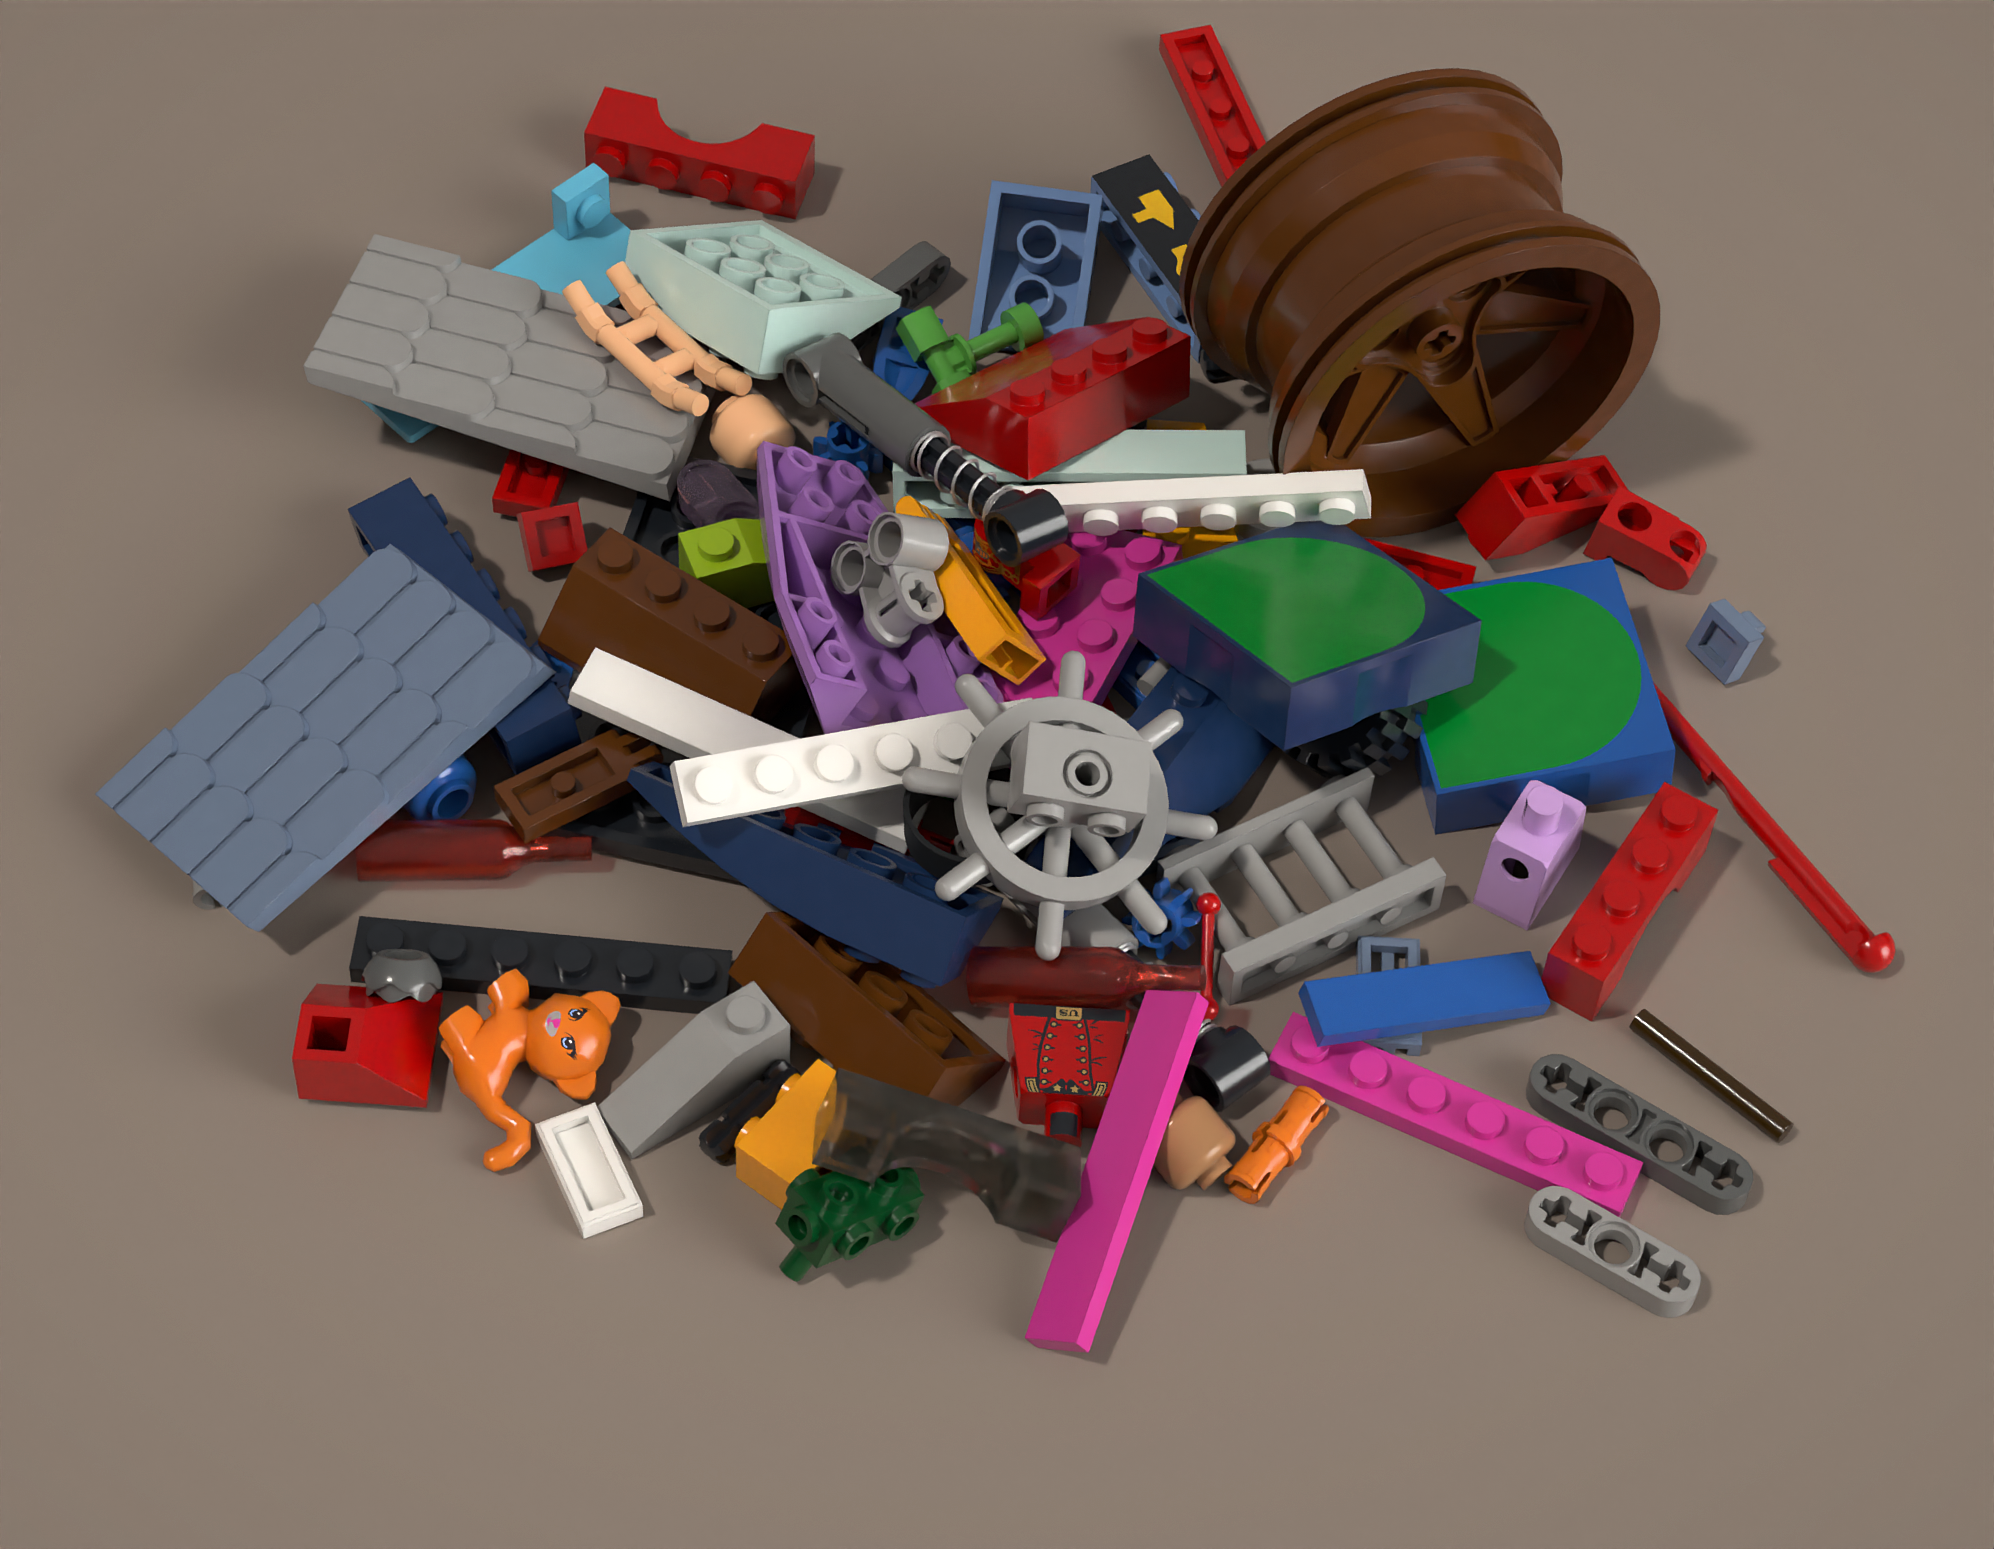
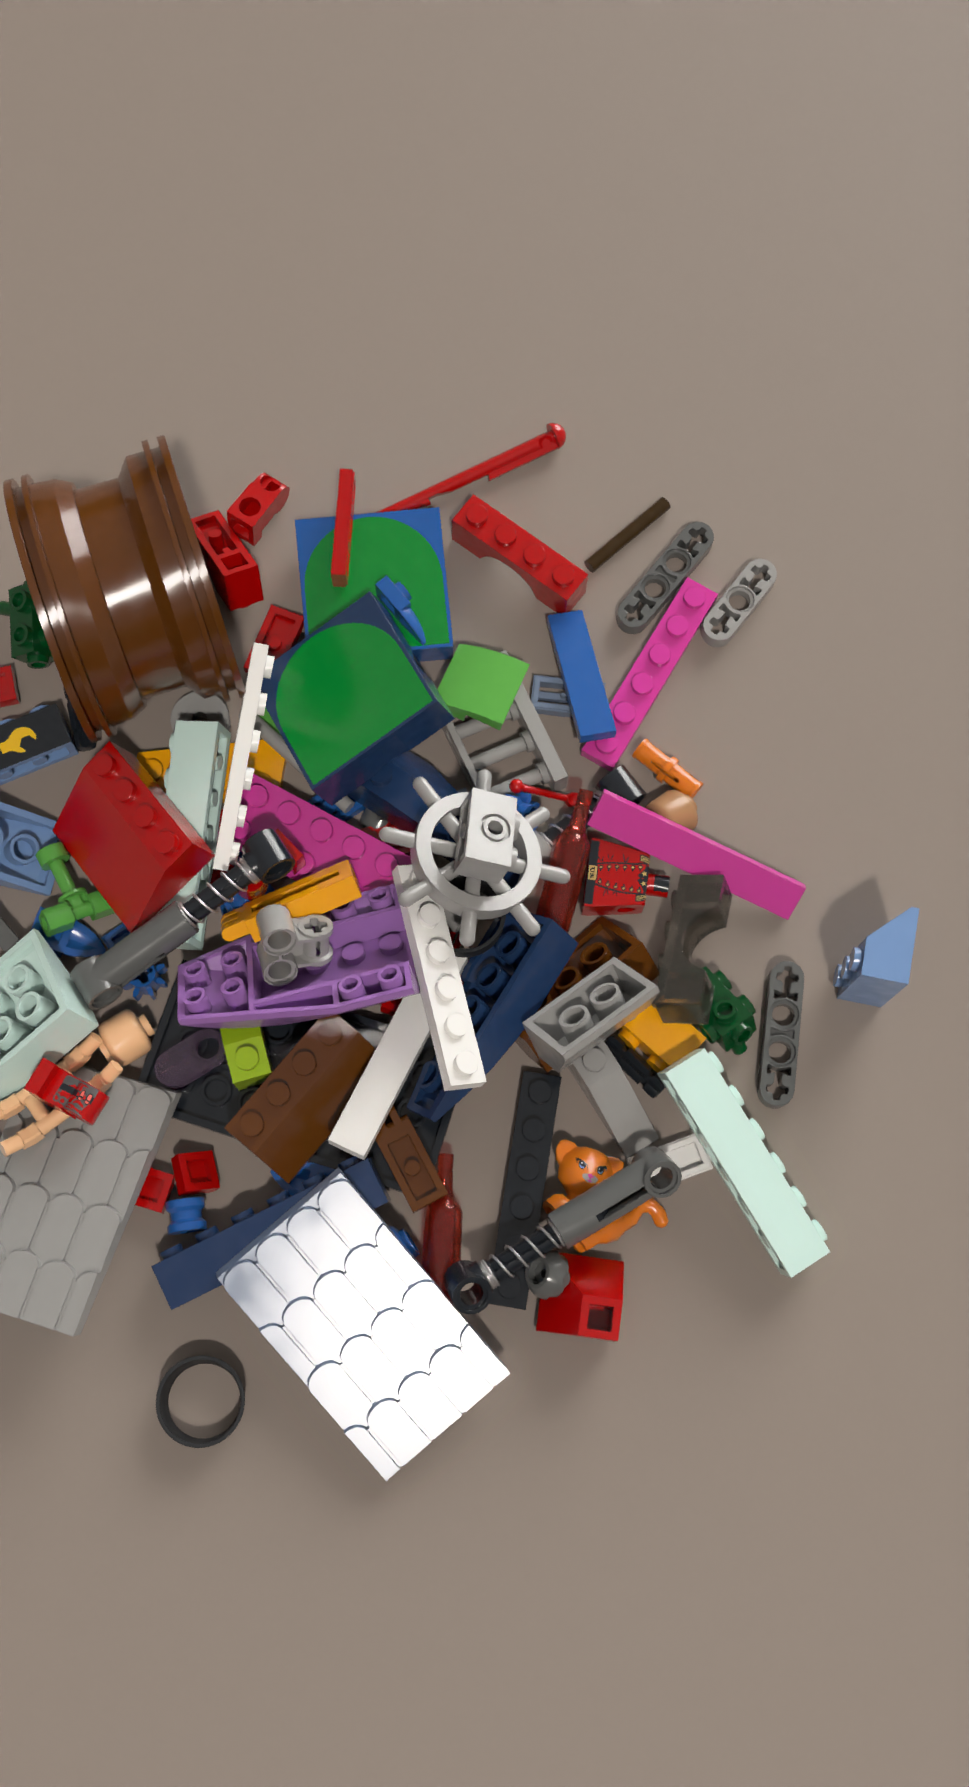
camera: 85 degrees left, 20 degrees up
(212, 527) = (163, 1410): none -> black tyre
(473, 980) = (566, 1226): none -> piece
(489, 530) = (186, 1215): none -> blue wheel
(587, 1247) = (744, 1162): none -> light aqua brick
(655, 339) = (66, 1092): none -> red leg
(810, 979) = (589, 1013): none -> light grey slope
(817, 1342) = (785, 1035): none -> dark grey beam
(950, 1432) = (879, 963): none -> medium blue slope
(1372, 837) = (481, 684): none -> bright green slope
(1484, 696) = (397, 601): none -> blue plate
(1544, 836) = (483, 601): lavender torso -> none
(1602, 607) = (343, 528): none -> red tile
(1726, 640) = (329, 471): sand blue tile -> none

